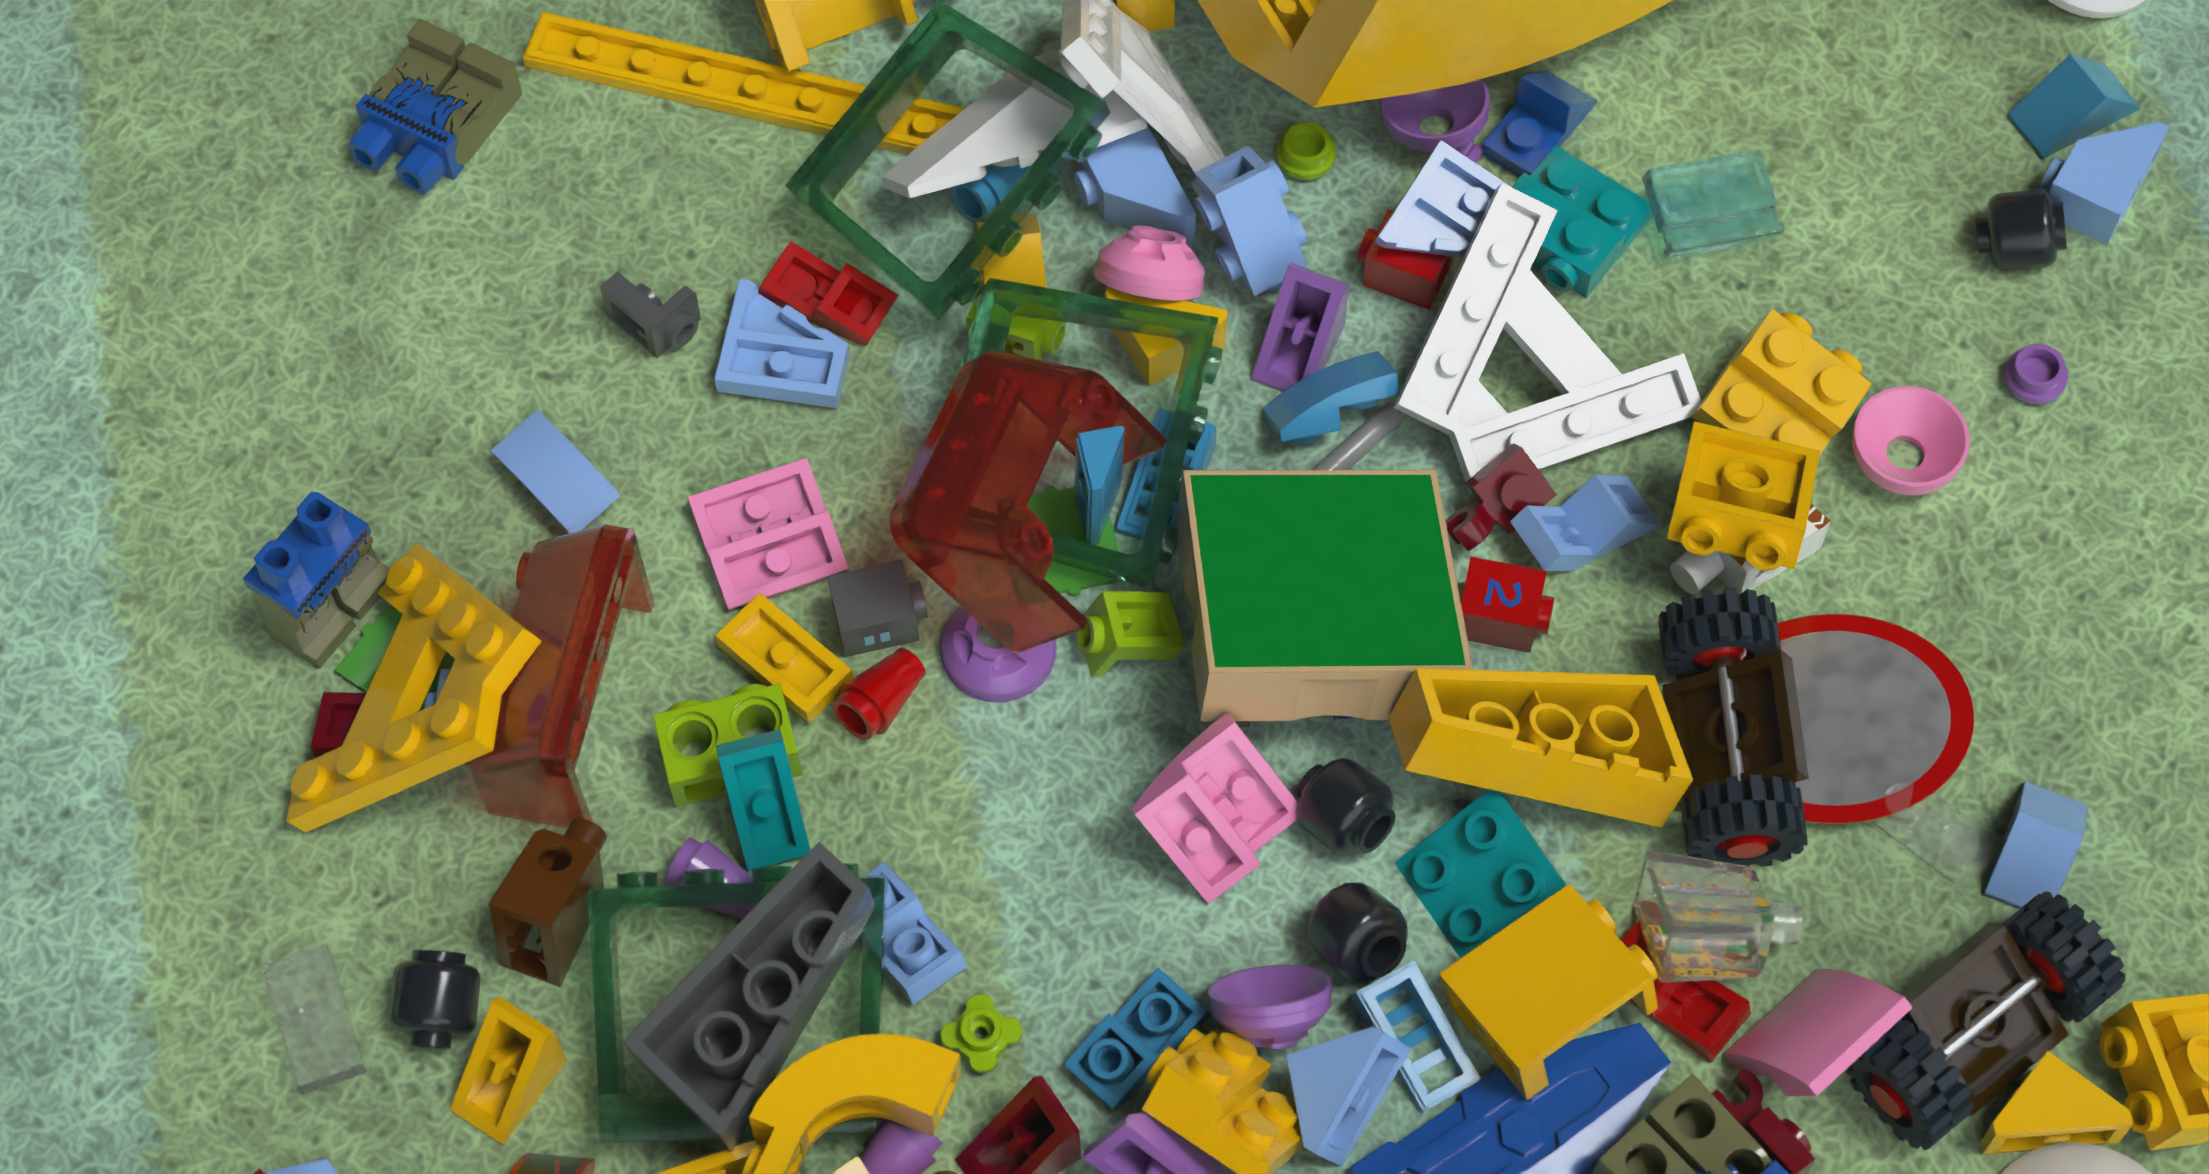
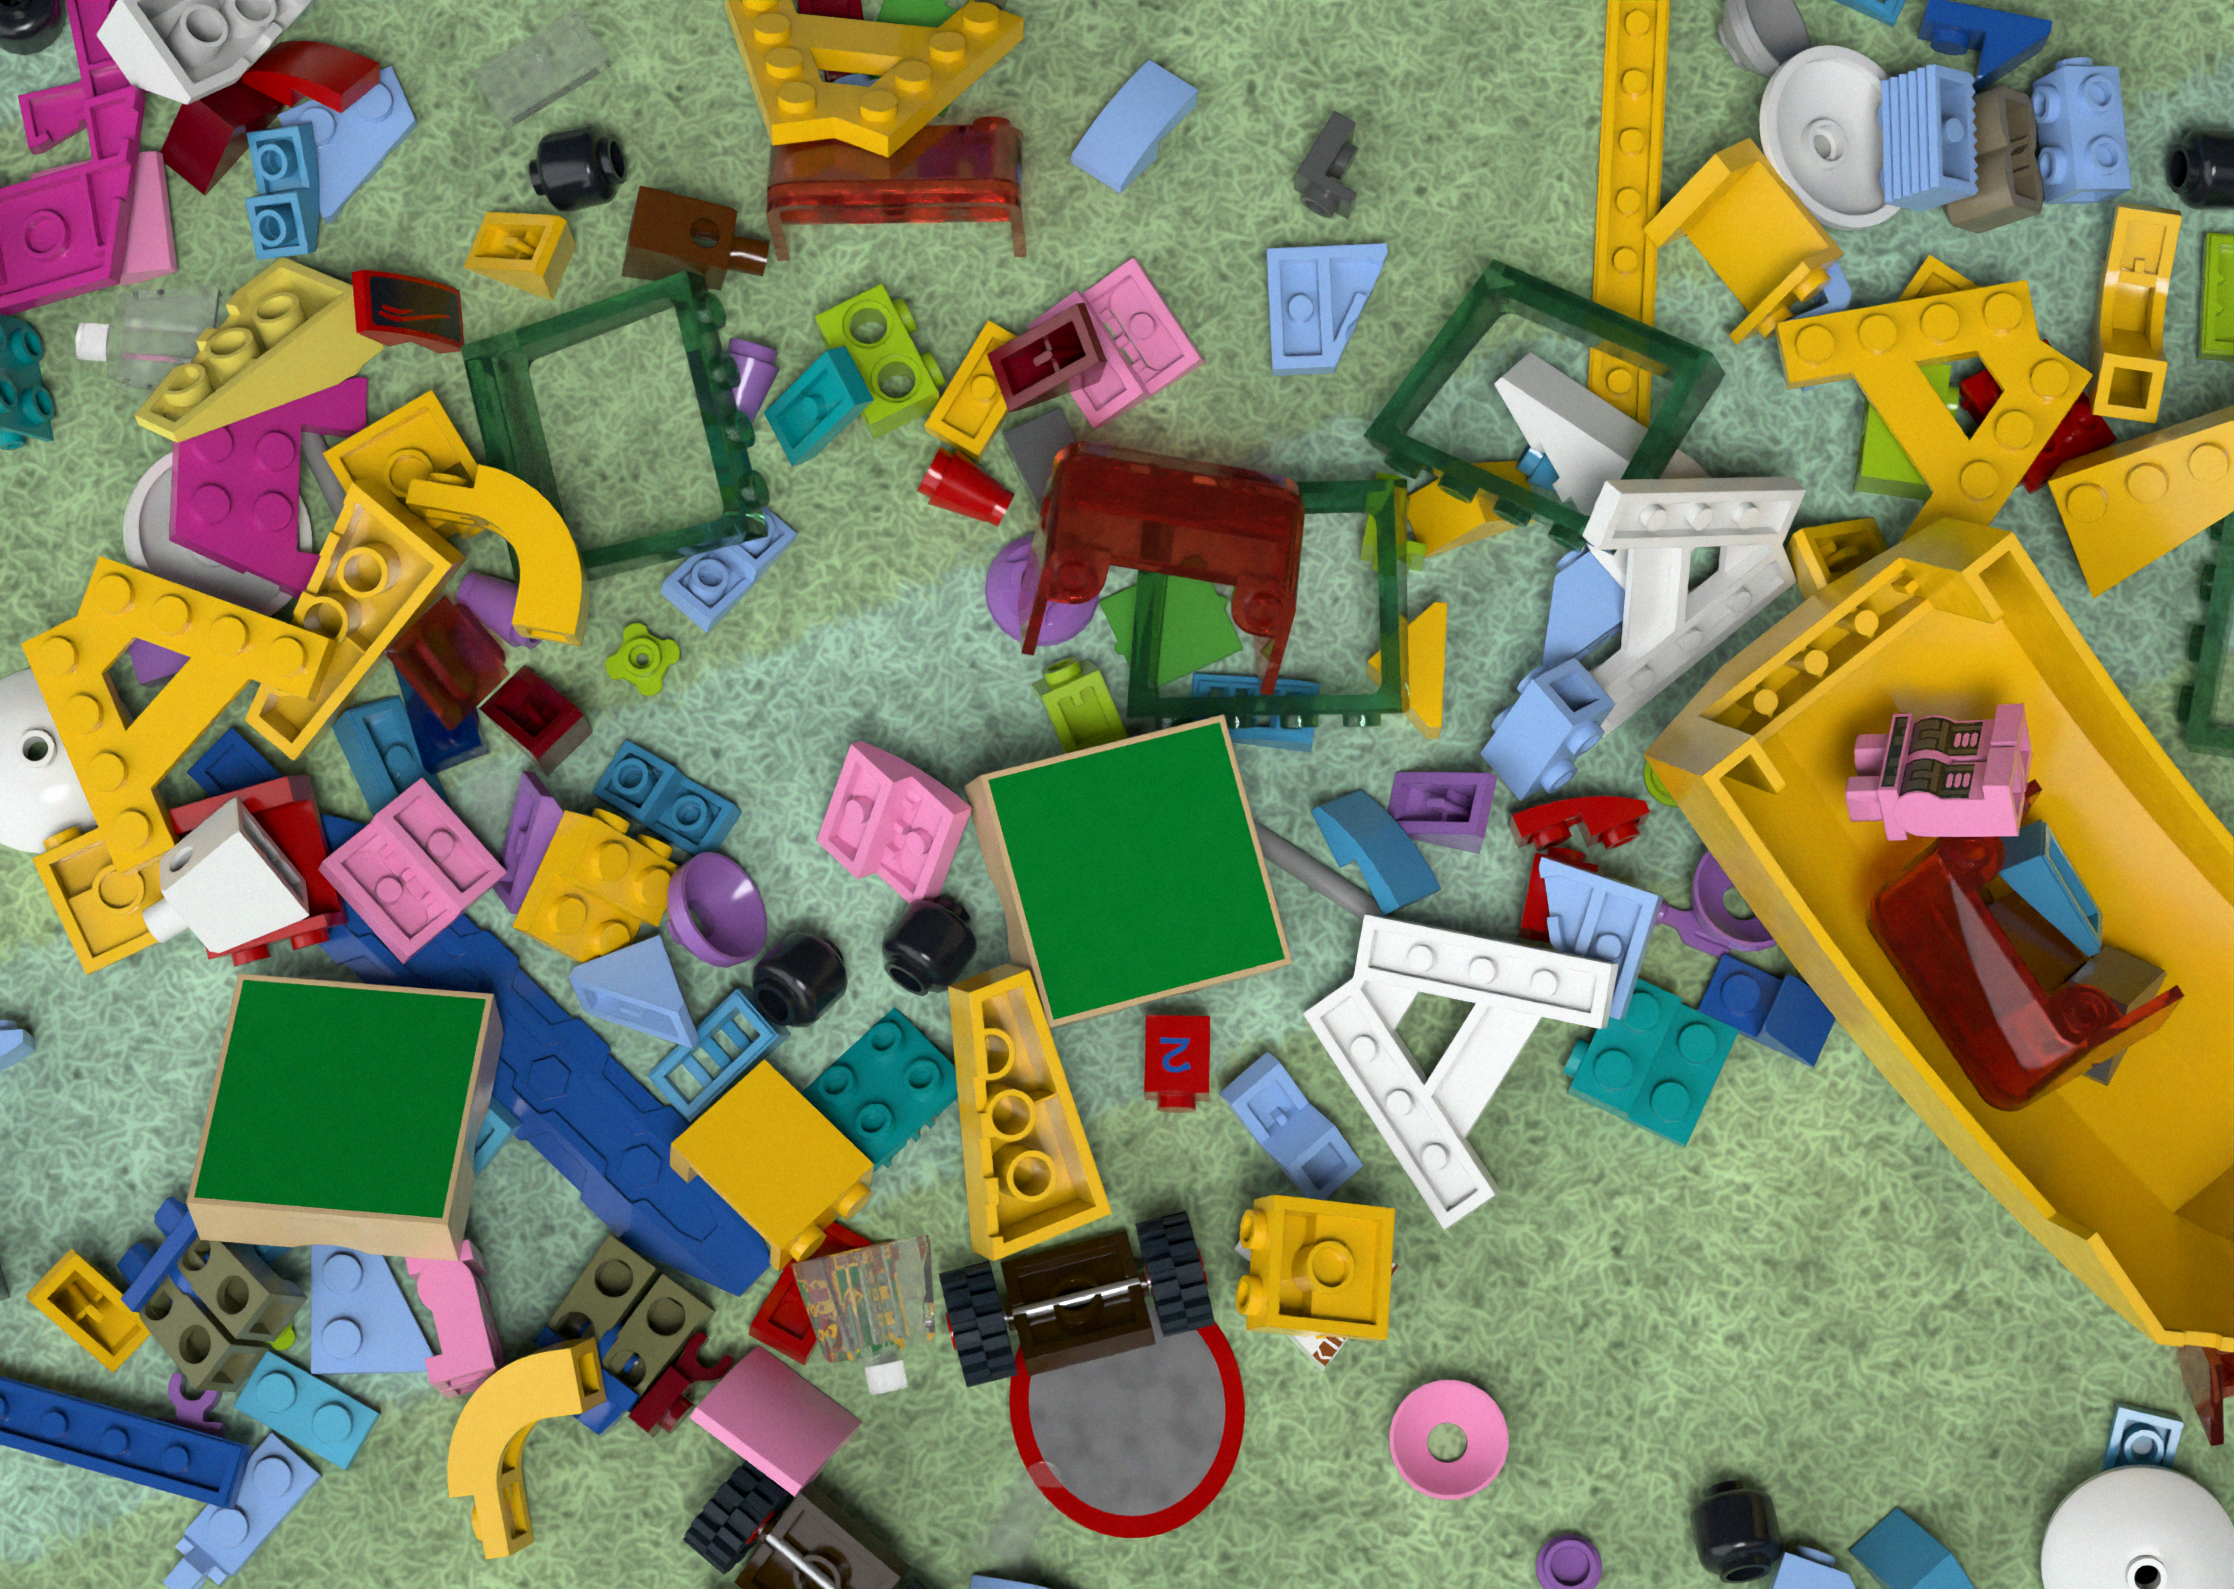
camera: 80 degrees right, 15 degrees up
(752, 996) = (587, 438): dark grey wedge -> none
(777, 569) = (1049, 360): none -> dark red slope
(833, 299) = (1396, 330): red slope -> none
(1098, 477) = (1207, 638): dark azure slope -> none
(1151, 265) = (1466, 643): bright pink piece -> none
(1338, 224) = (1597, 817): none -> red slope
(1500, 494) = (1302, 1038): dark red plate -> none
(1712, 203) = (1699, 1204): clear light blue plate -> none
(1785, 385) = (1473, 1304): yellow plate -> none

